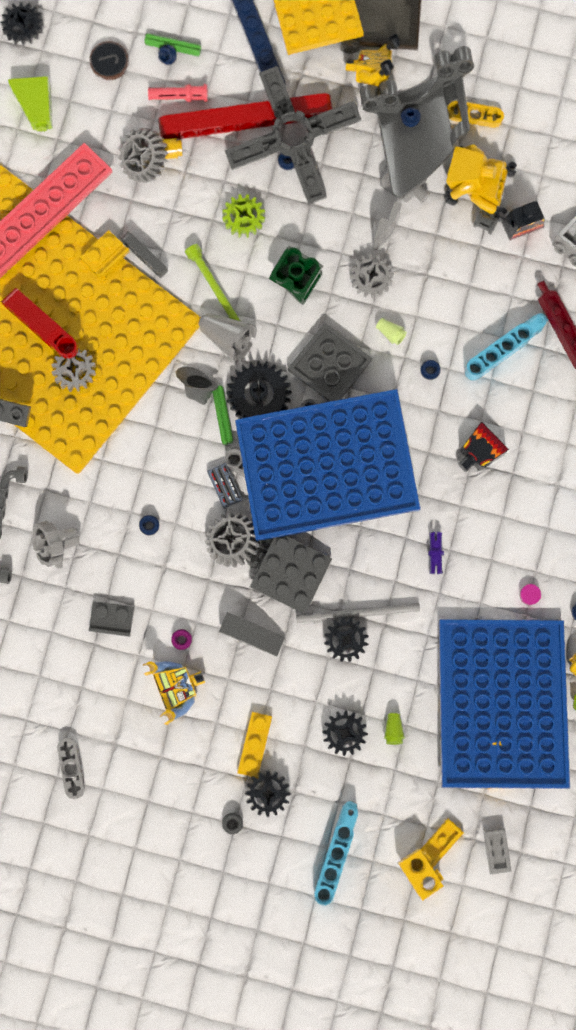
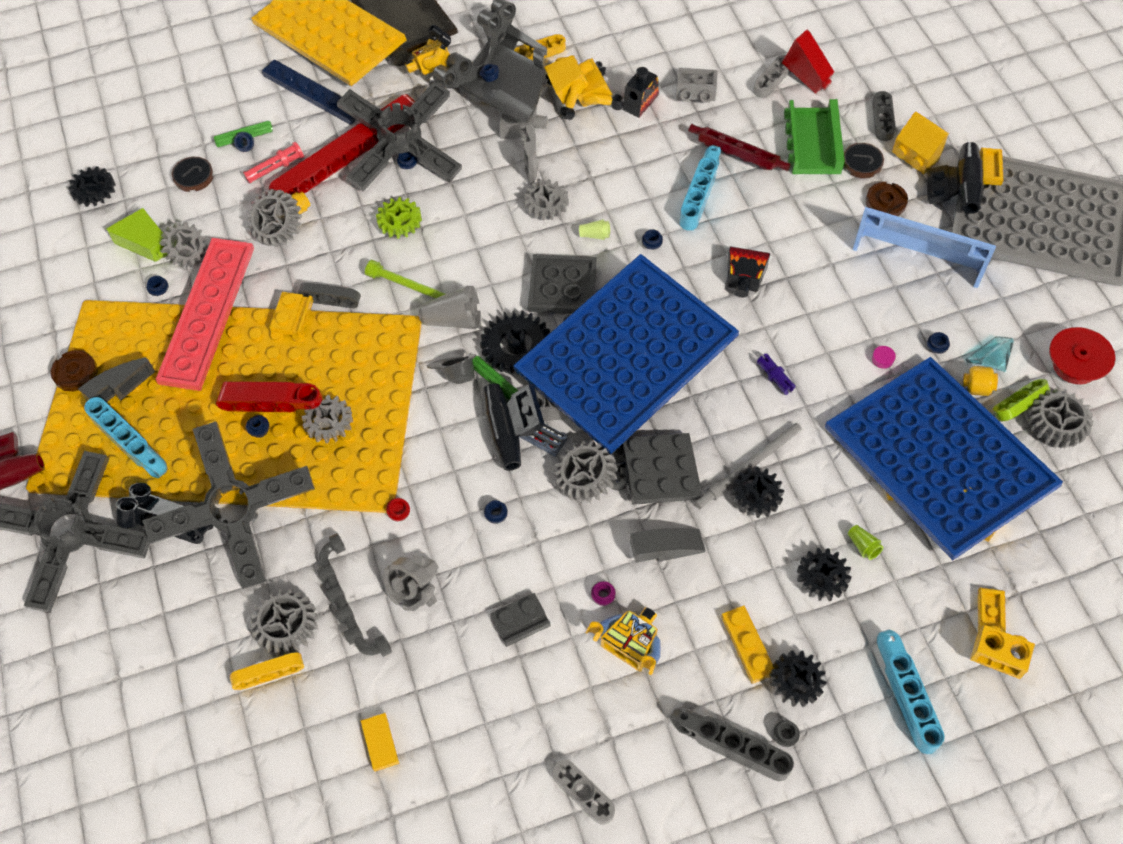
camera: 30 degrees left, 20 degrees down
(20, 152) = (157, 286): none -> dark blue plate
(23, 345) = (259, 431): none -> dark blue plate
(68, 131) = (179, 235): none -> light grey gear
(81, 476) = (398, 509): none -> red plate
(188, 793) = (693, 722): none -> dark grey piece
(205, 461) = (510, 420): none -> black plate
(297, 273) = (480, 230): dark green piece -> none
(485, 222) = (614, 108): dark grey bush -> none
(497, 851) = (1048, 586): light grey plate -> none

